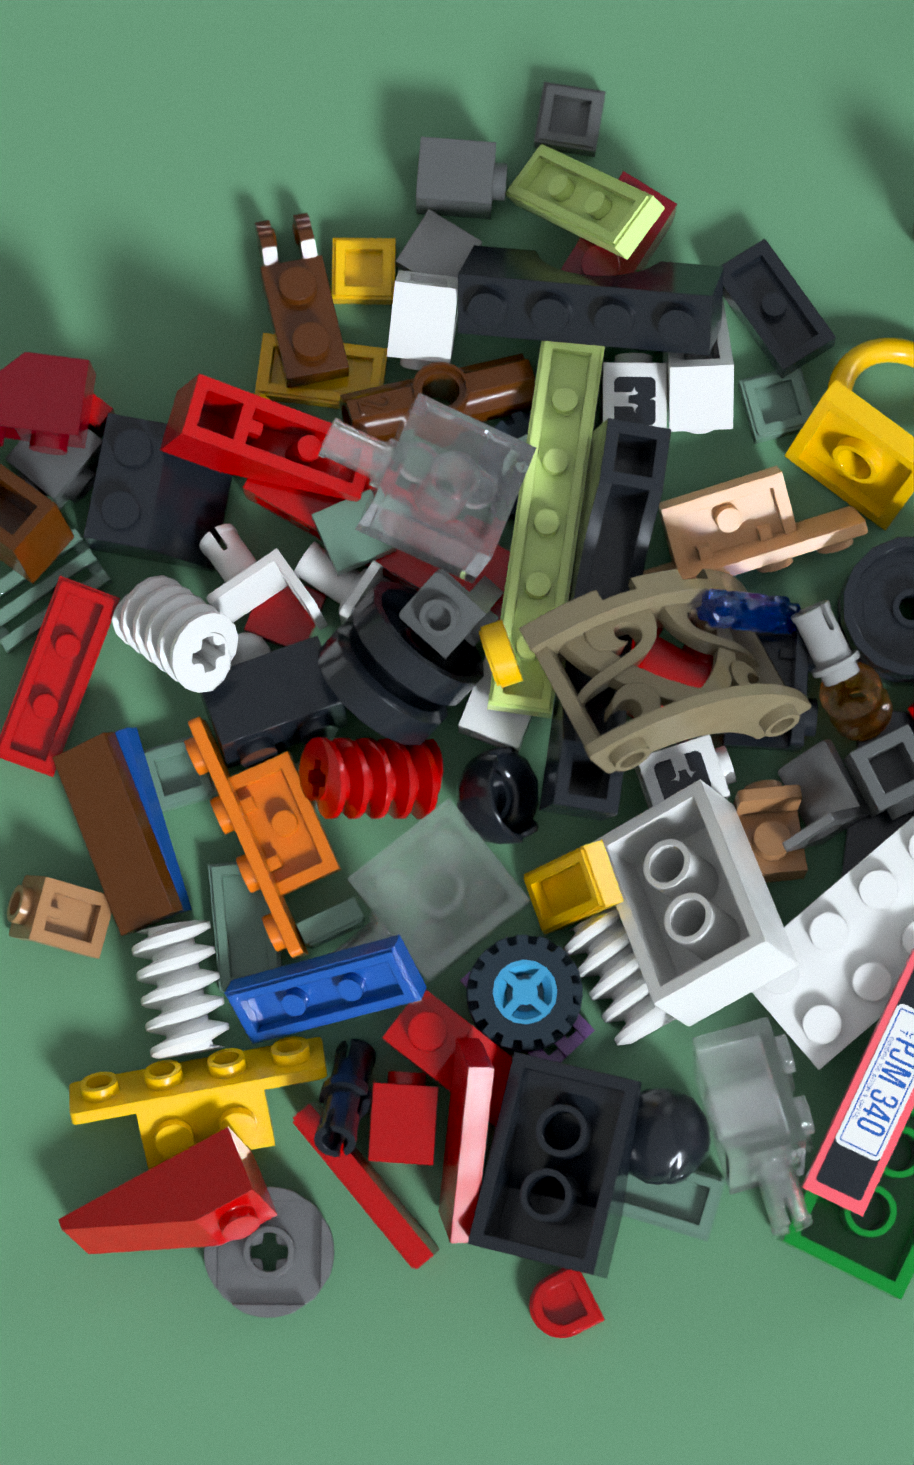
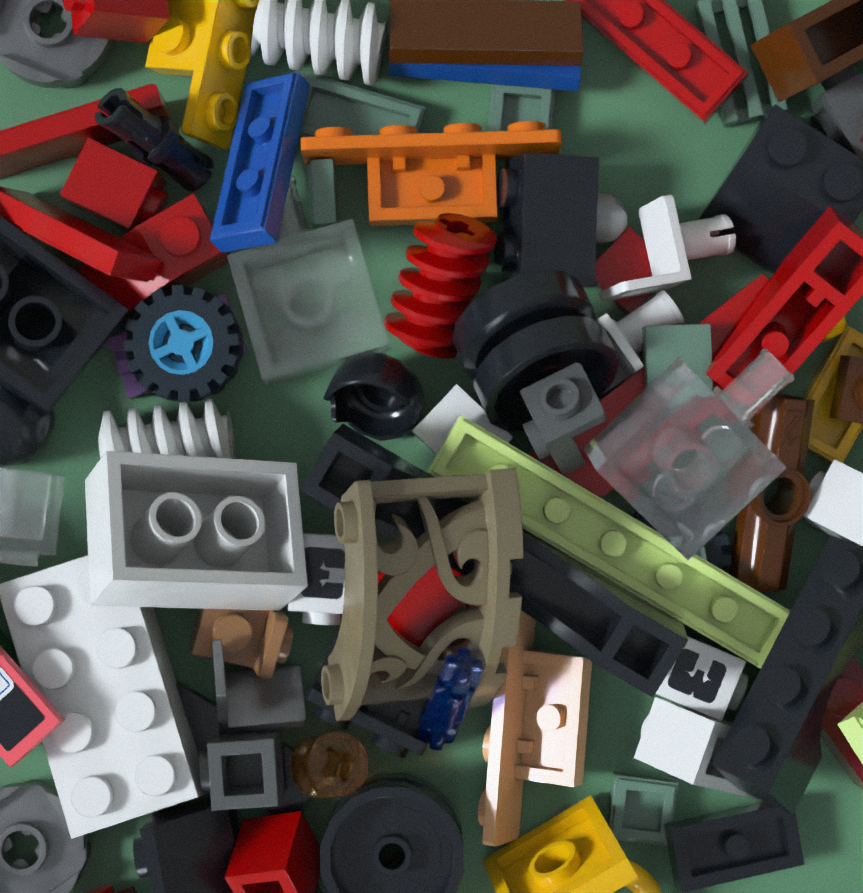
camera: 110 degrees right, 5 degrees up
(177, 632) = (648, 156): white piece -> none
(500, 654) = (501, 443): yellow tile -> none
(573, 887) = (261, 428): yellow tile -> none
(826, 644) = (389, 760): light grey pin -> none

